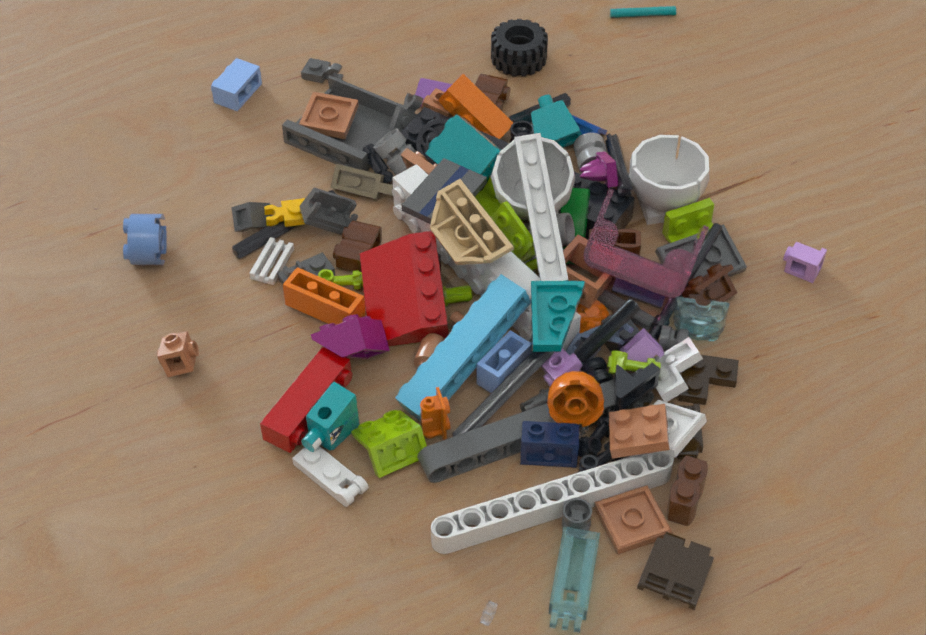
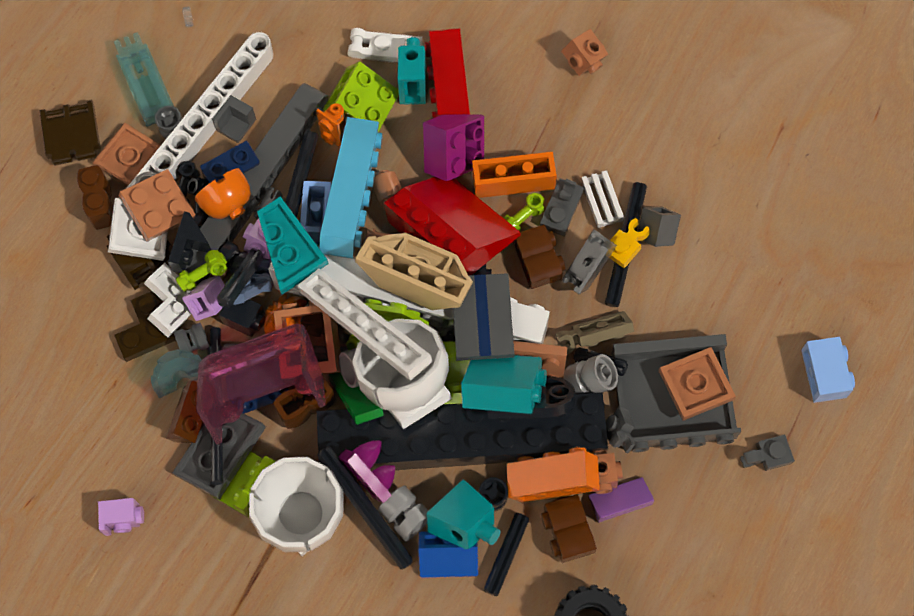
camera: 145 degrees right, 20 degrees up
(145, 239) = (716, 129): medium blue brick -> none
(504, 486) = (234, 119): none -> dark grey panel

